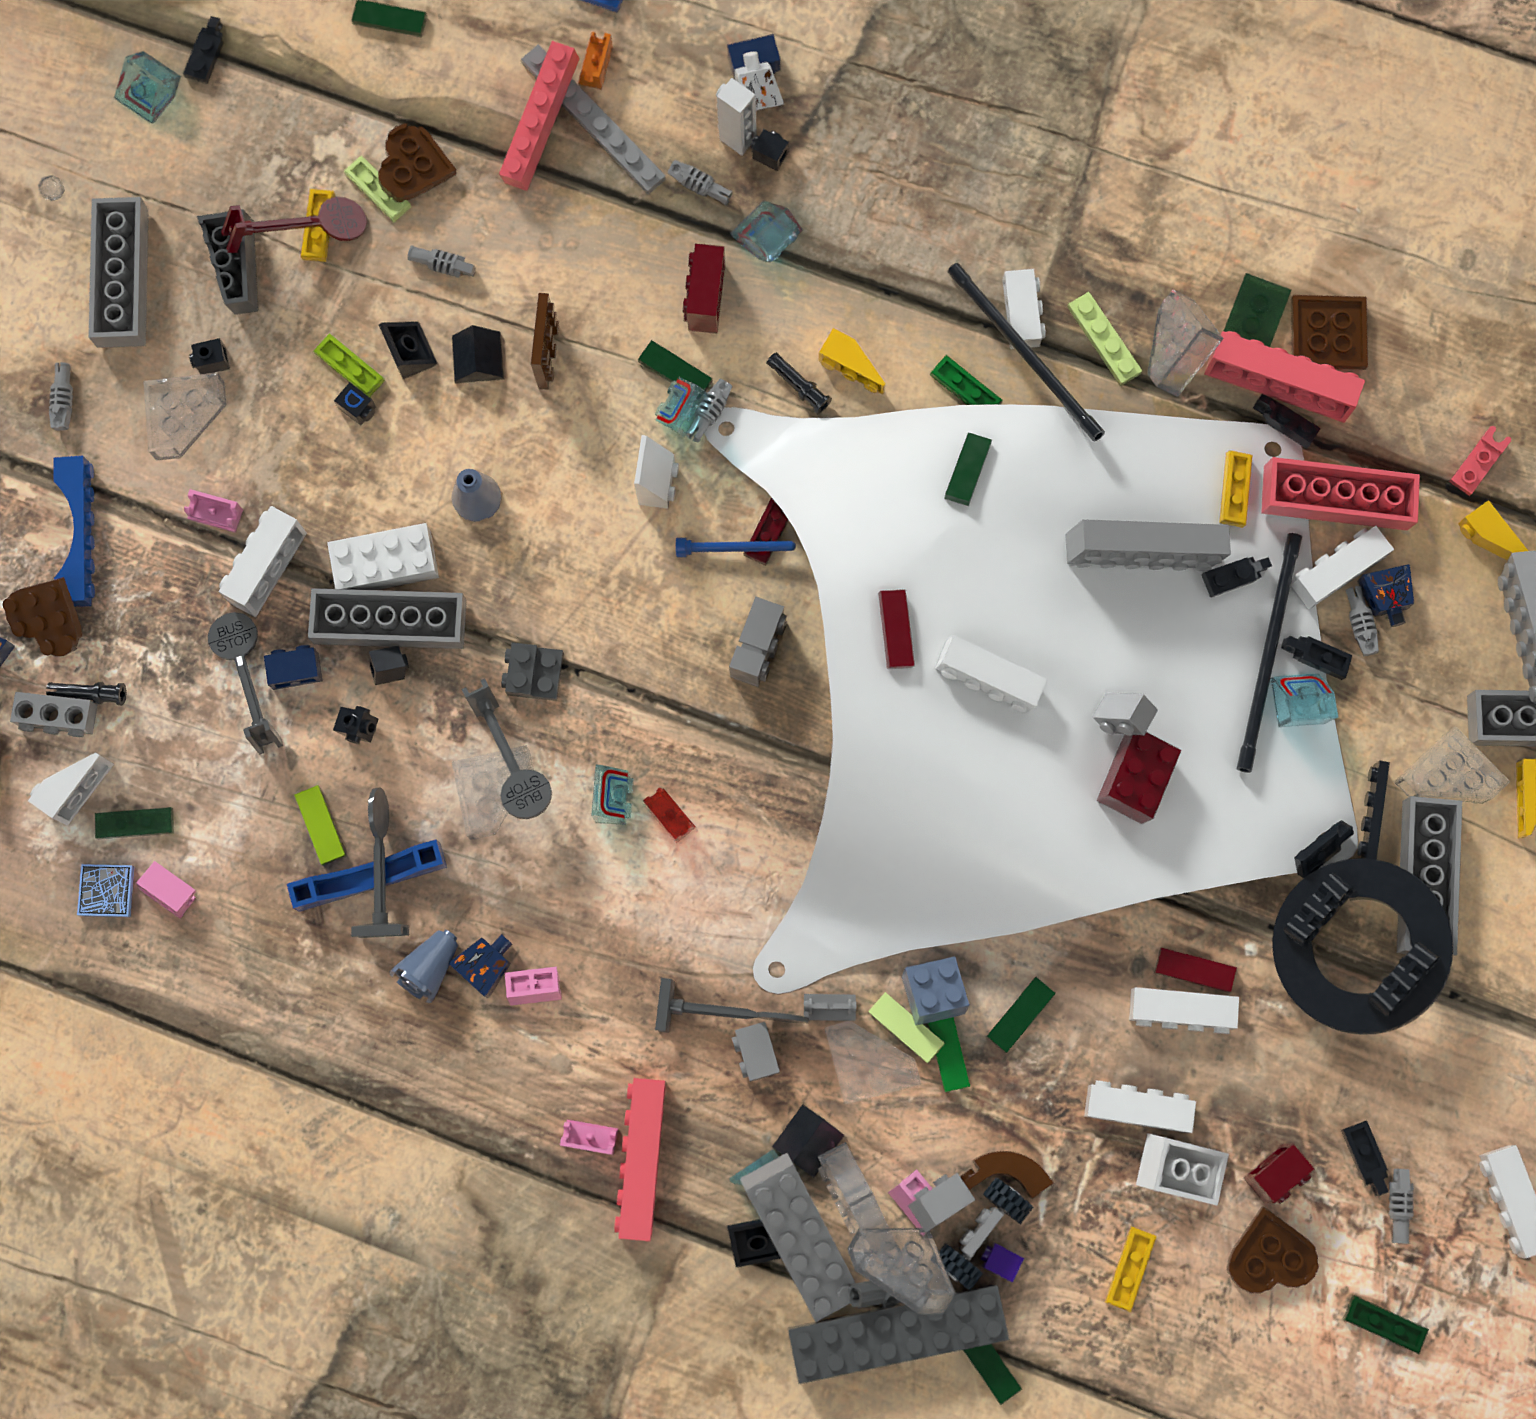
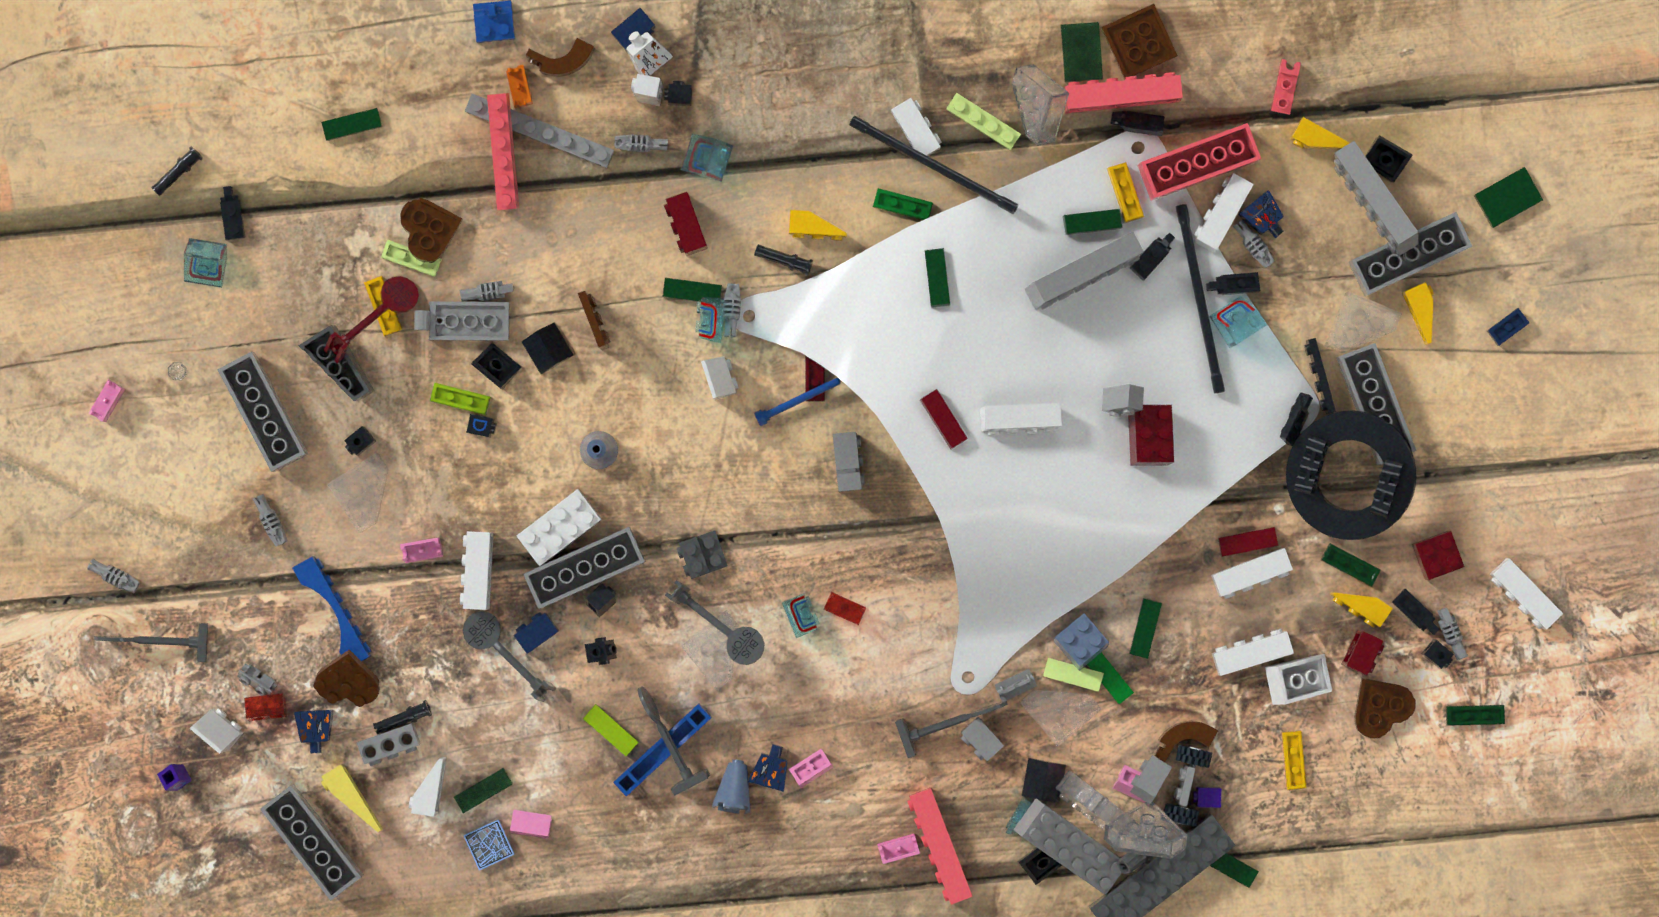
camera: 30 degrees left, 10 degrees up
(399, 281) = (465, 321): none -> light grey hinge
(659, 61) = (566, 65): none -> reddish brown arch
(1181, 500) = (1092, 221): none -> dark green tile
(1310, 1059) = (1350, 564): none -> dark green tile
(1310, 1122) = (1370, 608): none -> yellow slope
(1372, 1223) = (1438, 654): none -> black brick
(1426, 1099) = (1438, 555): none -> dark red brick

